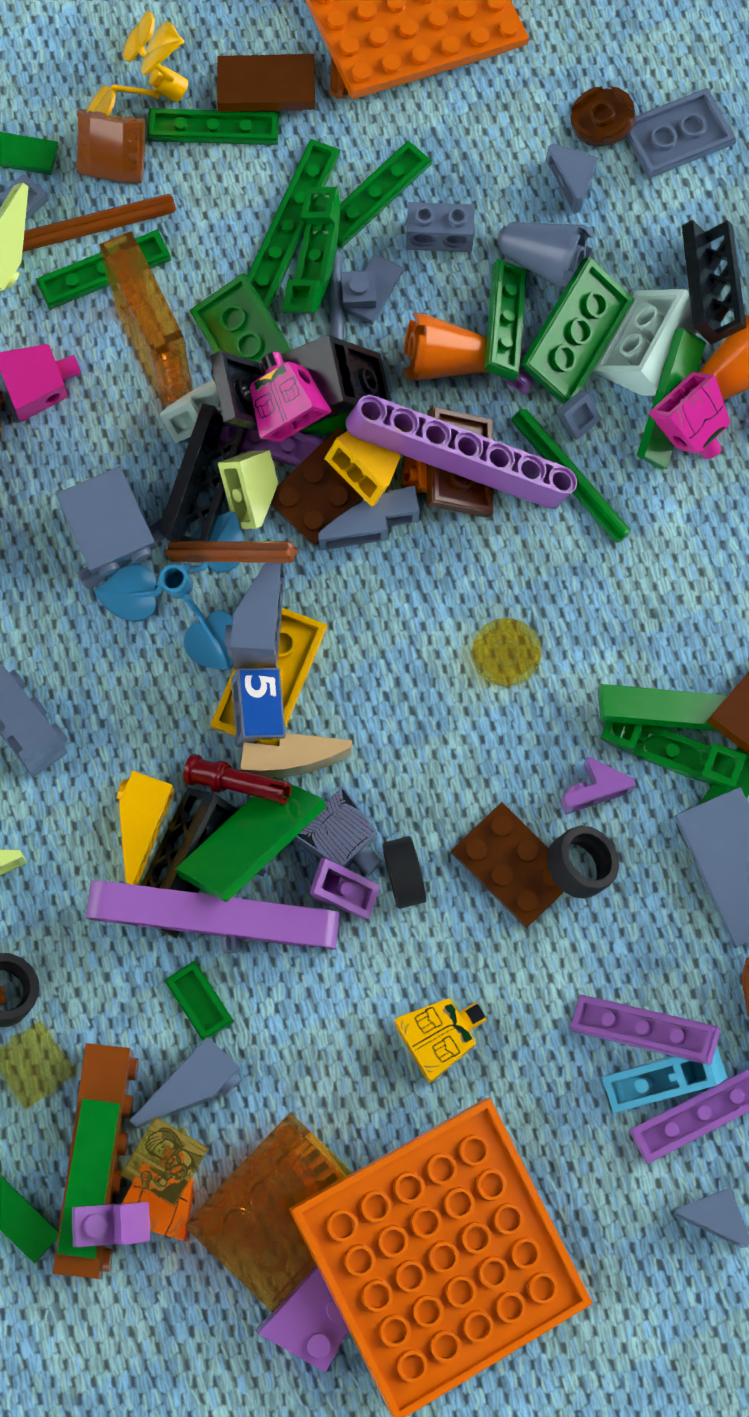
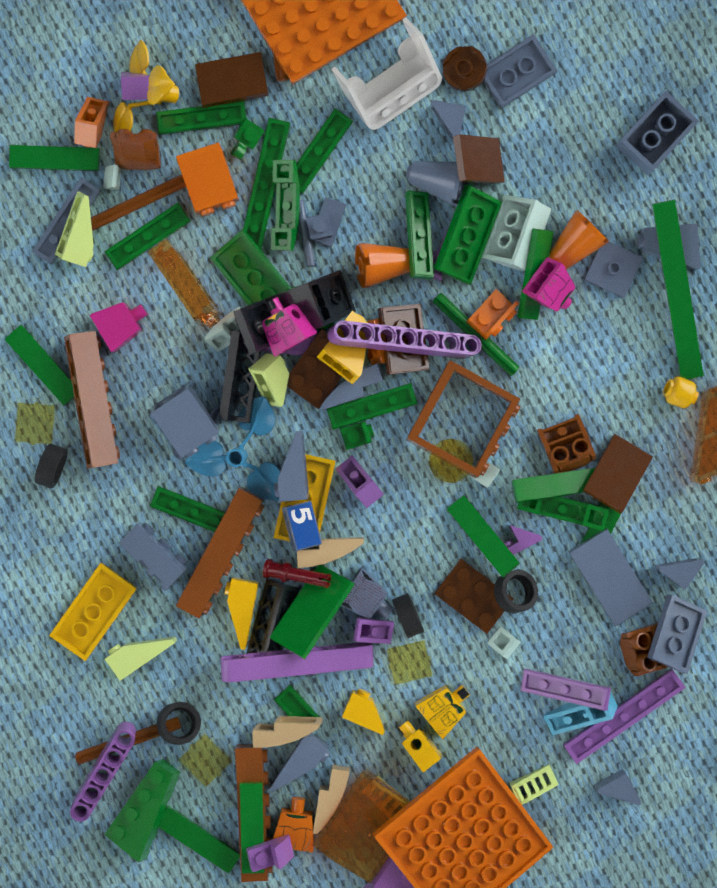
camera: 10 degrees left, 15 degrees up
(52, 107) = (90, 122): none -> orange slope
(69, 183) = (112, 177): none -> light aqua slope
(95, 669) = (187, 509): none -> green tile
(122, 732) = (219, 553): none -> dark orange brick
(125, 64) = (134, 86): none -> medium lavender slope
(164, 1161) = (294, 810): clear yellow piece -> none
(171, 1029) = (284, 730): none -> tan slope
(207, 197) = (208, 179): none -> orange slope
(228, 1154) = (330, 796): none -> tan slope
(231, 551) = (268, 433): dark orange axle -> none
(275, 157) = (247, 135): none -> green plate
(307, 1019) = (363, 711): none -> yellow slope
(360, 660) = (359, 481): none -> medium lavender slope
(367, 592) = (357, 435): none -> green bracket
(395, 956) = (409, 662): none -> clear yellow piece
(396, 554) = (372, 406): none -> green tile
(397, 1101) = (427, 754): none -> yellow torso
(440, 227) = (366, 172): sand blue brick -> none
(500, 638) = (492, 446): none -> dark orange window
(503, 128) = (397, 86): none -> white windscreen
(542, 767) = (483, 536): none -> green tile
(553, 948) = (503, 642): none -> light aqua slope
(556, 677) = (489, 476): none -> light aqua slope
(578, 414) = (476, 292): sand blue plate -> none
(599, 447) = (491, 314): none -> orange bracket
(605, 1188) = (531, 777): none -> yellowish green slope
(607, 226) = (478, 159): none -> reddish brown tile
(692, 654) = (568, 440): none -> dark orange slope
(706, 285) = (545, 185): black fence -> none

